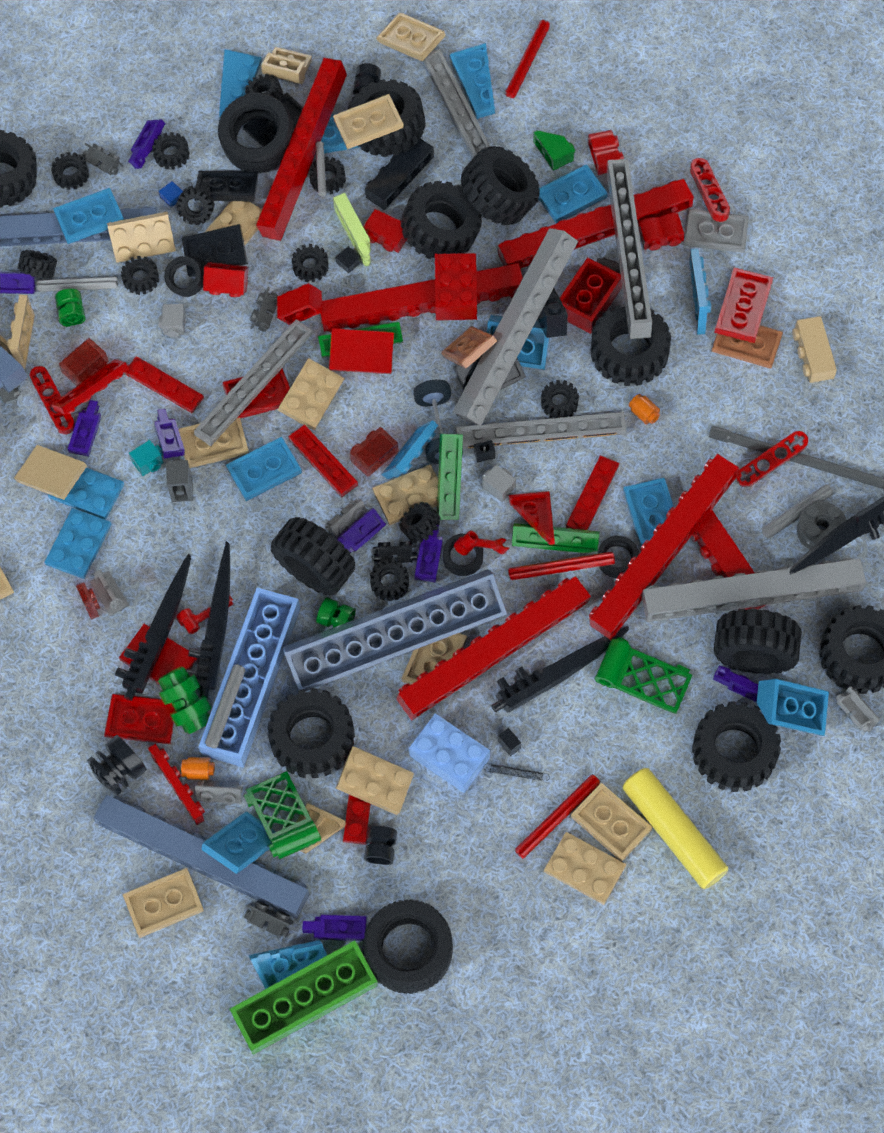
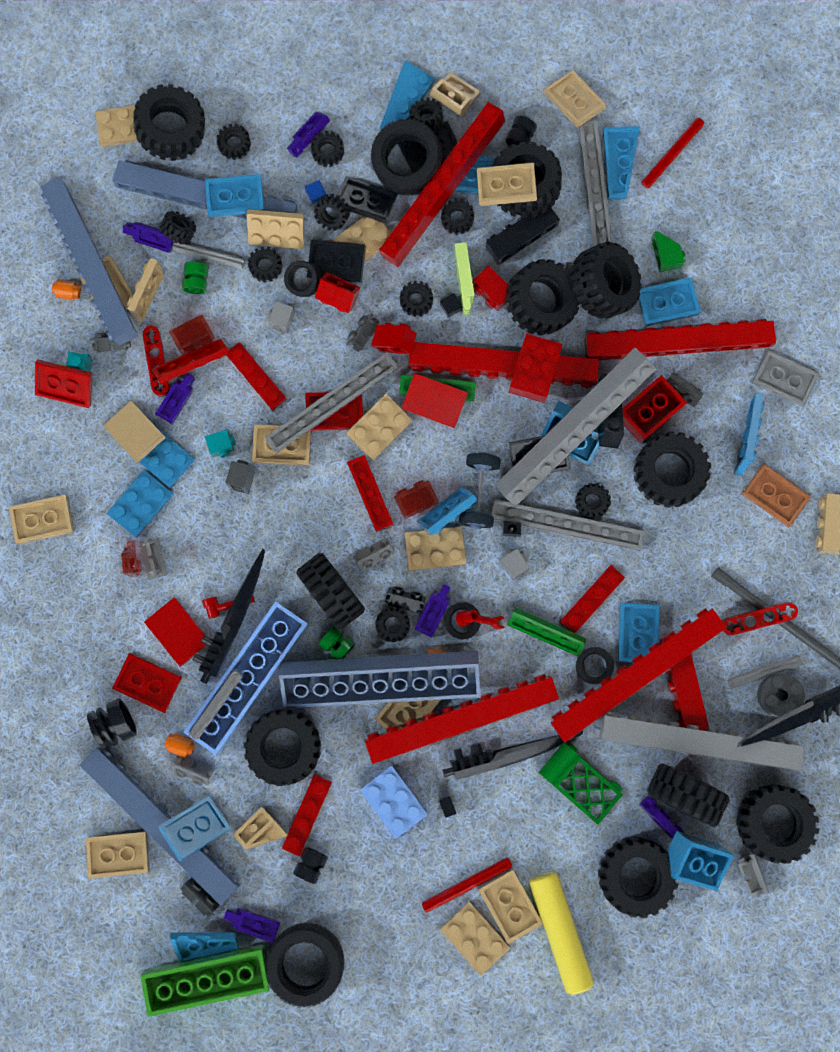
camera: 15 degrees right, 15 degrees up
(95, 155) = (260, 132): dark grey hinge -> none
(156, 636) = (168, 629): black piece -> none
(168, 435) = (244, 429): hinge -> none
(172, 776) = (156, 745): red plate -> none
(192, 711) = (183, 678): green piece -> none
(263, 469) = (317, 485): dark azure plate -> none
(293, 835) = (241, 838): green piece -> none
(321, 169) = (453, 209): light grey bar -> none
(361, 530) = (379, 572): dark purple hinge -> none
(374, 780) = (323, 806): tan plate -> none
(419, 522) = (437, 589): black tyre -> none
(449, 476) = (472, 549): green plate -> none
(468, 347) = (528, 430): nougat tile -> none
(515, 771) = (446, 834): black piece -> none
(536, 511) = (538, 602): red wing -> none
(560, 566) = (545, 661): red axle -> none
(604, 148) = (712, 269): red brick -> none
(629, 249) = (701, 382): light grey brick -> none
(644, 409) = (664, 533): orange brick -> none
(661, 231) = (736, 365): red brick -> none
(706, 190) = (793, 337): red beam -> none
(744, 305) = (785, 461): plate -> none

